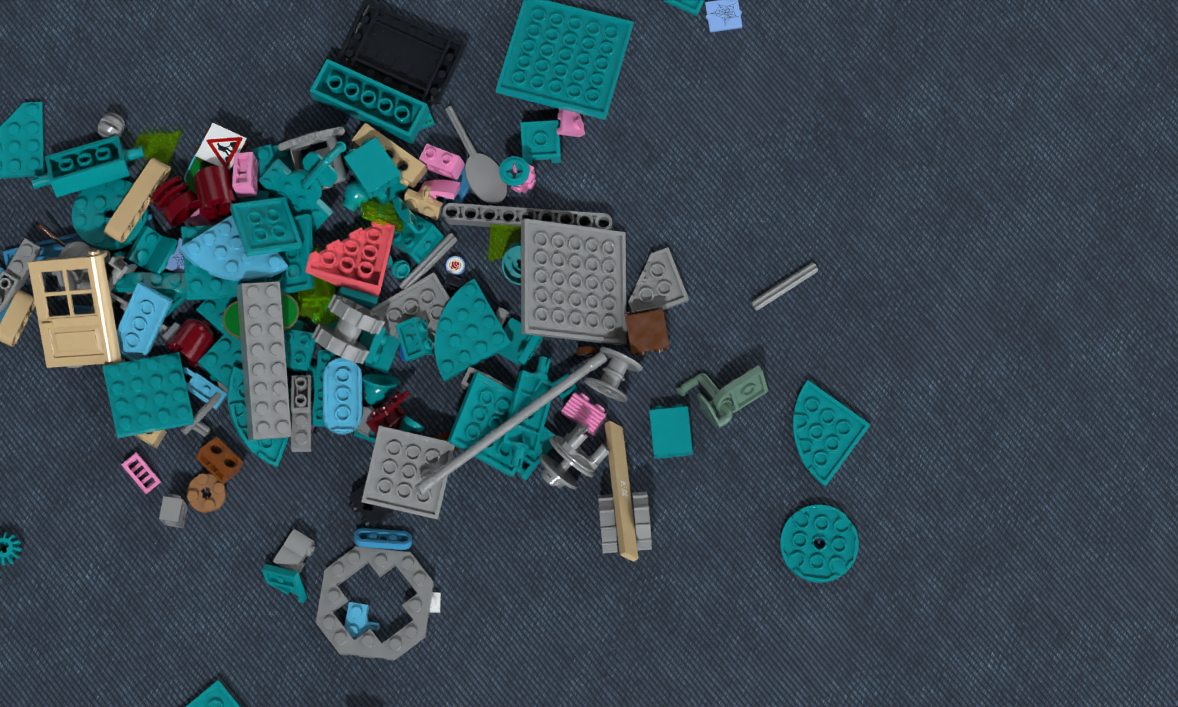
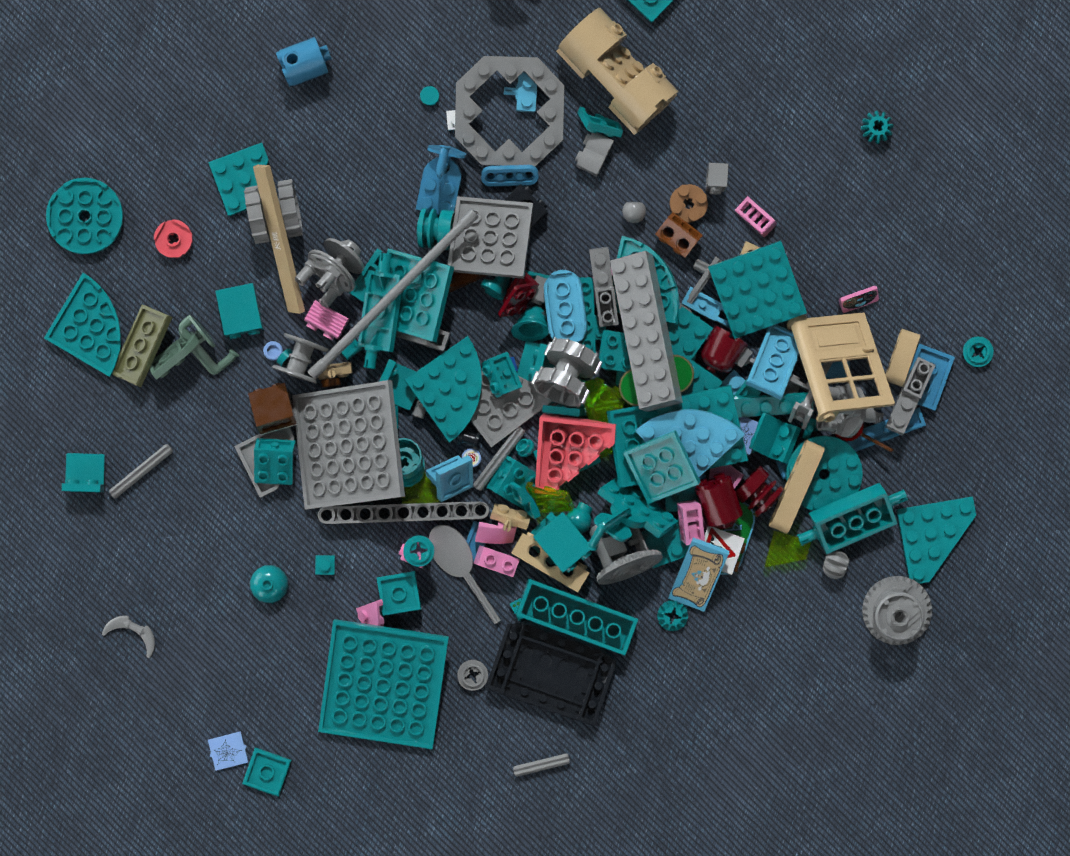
camera: 175 degrees right, 10 degrees up
(50, 381) = (859, 299): none -> slope
(57, 76) = (885, 604): none -> light grey piece
(186, 311) = (734, 380): none -> medium azure plate
(242, 605) = (597, 49): none -> tan cylinder
(245, 127) = (698, 574): none -> tile
(262, 489) = (634, 211): none -> light grey piece
(280, 104) = (664, 620): none -> teal gear
(453, 533) = (438, 187): none -> dark azure plate
(455, 630) = (429, 96): none -> teal tile
(462, 489) = (432, 228): none -> teal wheel
(470, 57) = (468, 683): none -> light grey gear
(476, 247) = (452, 477): none -> medium azure bracket
(571, 676) = (303, 61): none -> dark azure cylinder
(574, 362) = (338, 369): none -> tan plate
(611, 178) = (325, 565): none -> teal plate
(629, 381) = (284, 357): none -> teal tile
(641, 390) = (272, 350): none -> light blue tile
(649, 279) = (273, 461): none -> teal bracket
(658, 568) = (236, 173): none -> teal plate
(668, 165) = (269, 584): none -> teal cylinder
(732, 522) = (171, 228): none -> coral plate
(772, 406) = (141, 345): none -> olive tile
(814, 144) = (124, 622): none -> light grey piece
(840, 287) = (84, 473): none -> teal bracket

